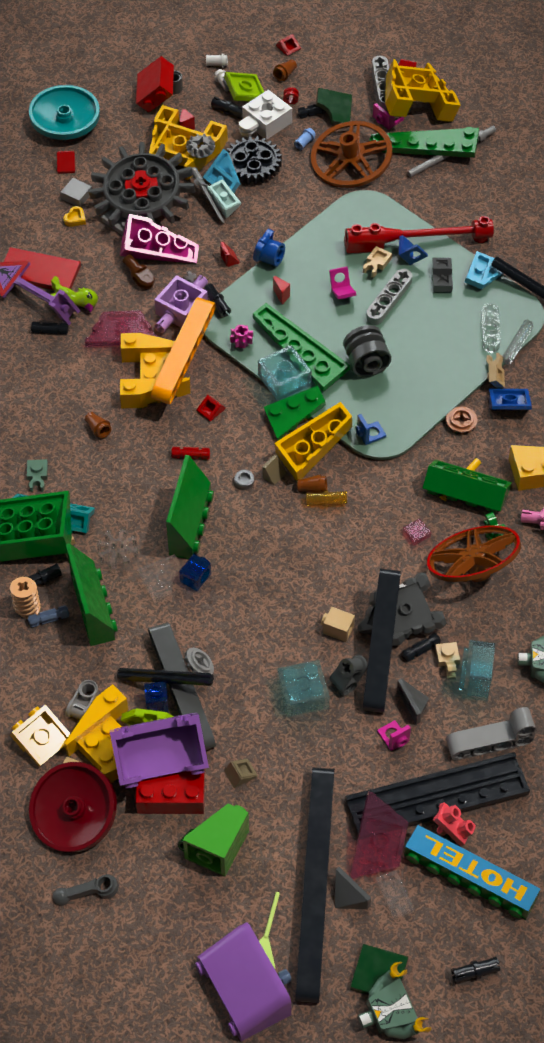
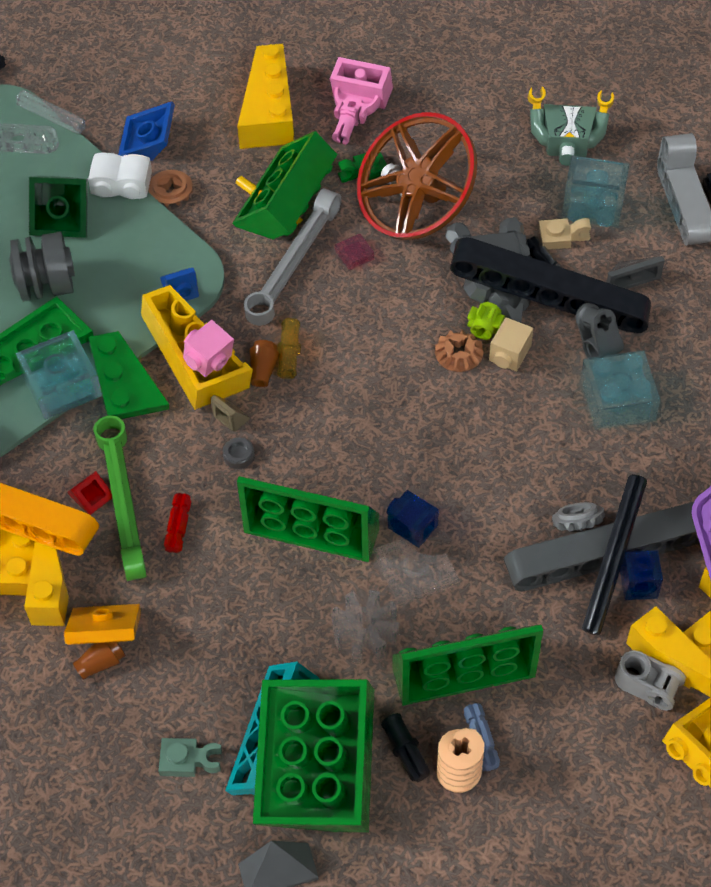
camera: 85 degrees left, 0 degrees up
(114, 420) = (102, 624): none -> light orange plate
(139, 716) = (684, 582): lime tile -> none
(161, 432) = (121, 496): none -> bright green piece
(299, 440) = (208, 348): none -> bright pink brick
(340, 603) = (461, 360): none -> nougat gear
(356, 606) = (485, 320): none -> lime gear
(398, 738) = (692, 292): dark pink bracket -> none
(427, 352) = (58, 205): none -> dark green slope
(452, 509) = (325, 208): none -> light grey piece
(459, 386) = (120, 175): none -> white brick
(496, 372) = (102, 140): tan plate -> none

